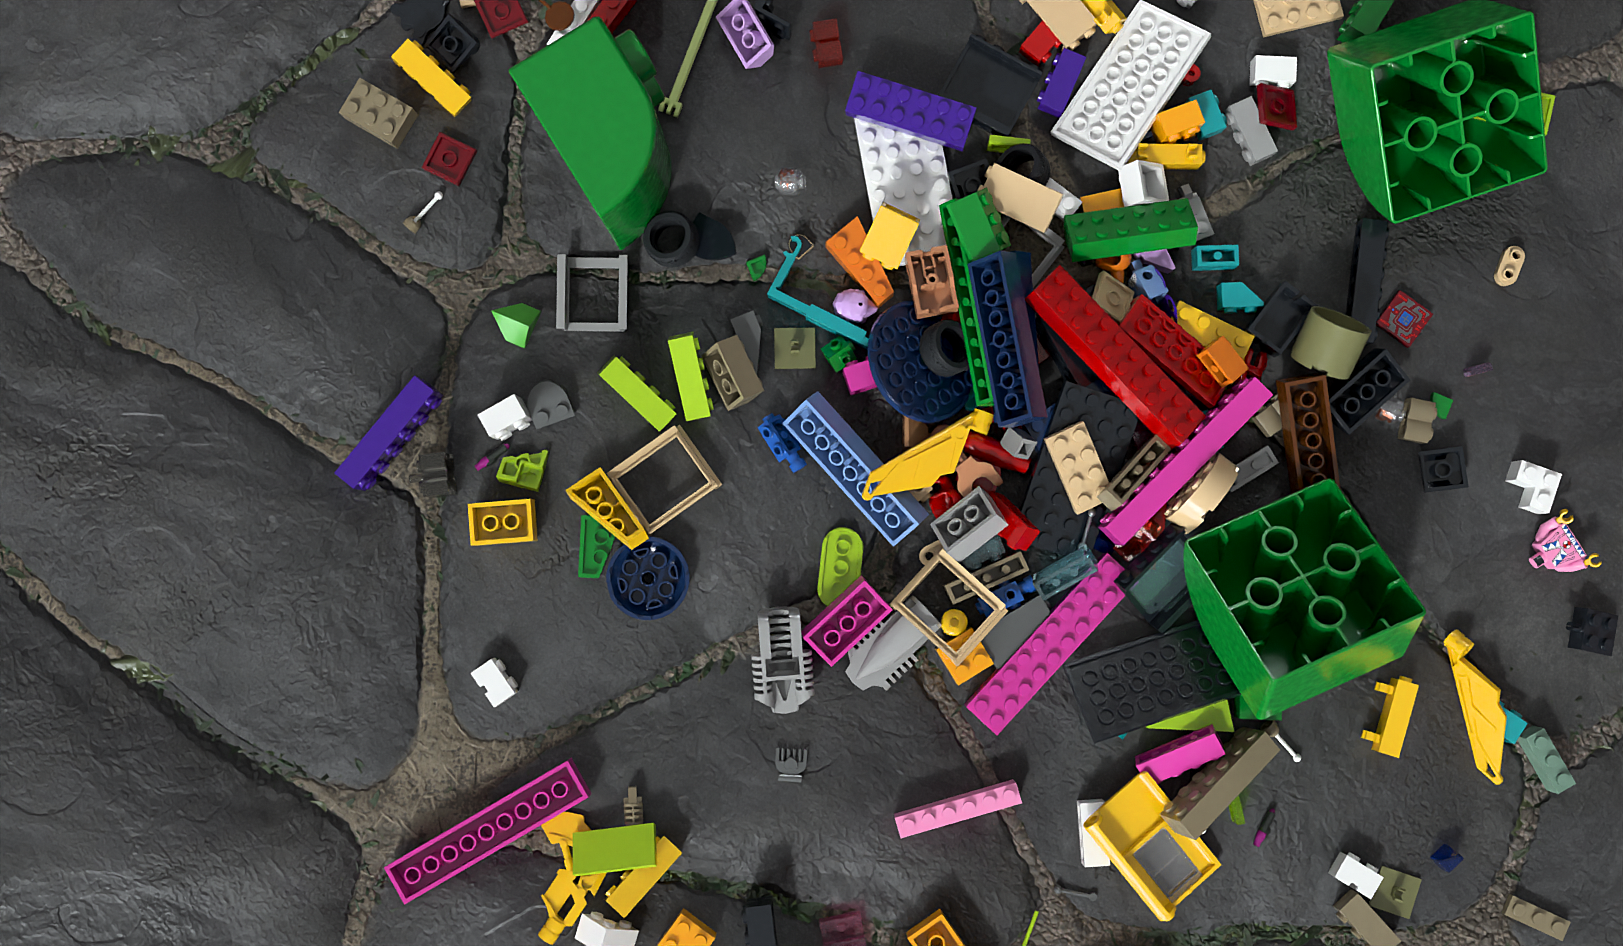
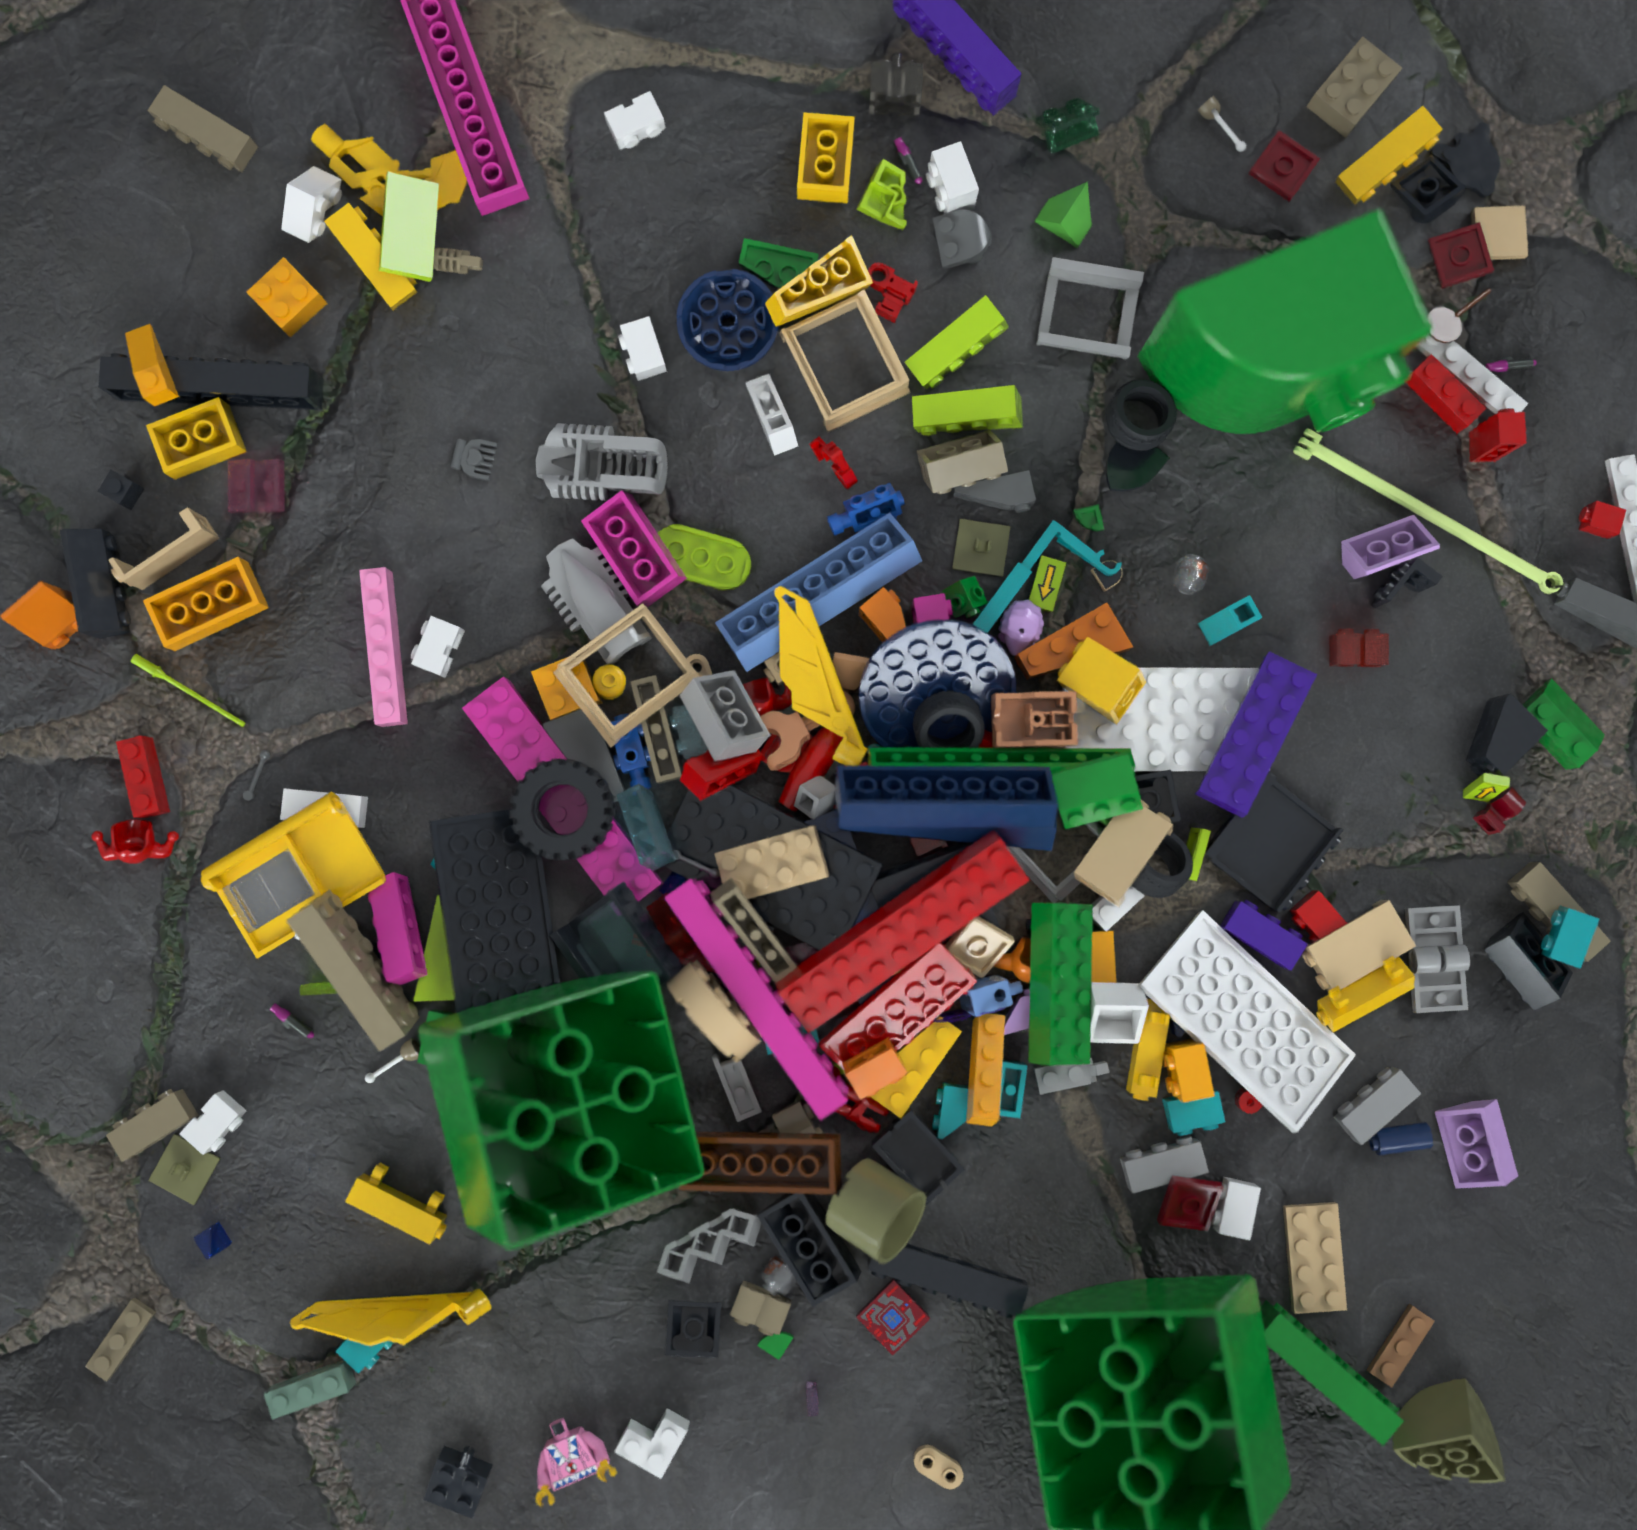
camera: 95 degrees right, 0 degrees up
(443, 333) = (1069, 124): none -> clear green bracket
(601, 448) = (897, 291): none -> red piece
(681, 643) = (642, 347): none -> white brick
(716, 530) = (772, 414): none -> white slope
(745, 472) = (840, 466): none -> red piece
(815, 292) = (1047, 583): none -> lime tile
(821, 145) = (1230, 620): none -> teal slope
(866, 412) = (883, 614): none -> orange slope
(942, 765) = (435, 646): none -> white brick
(1094, 646) = (526, 809): none -> black tyre
(1206, 277) = (985, 1069): none -> light orange brick
(1377, 469) = (708, 1243): none -> light grey brick

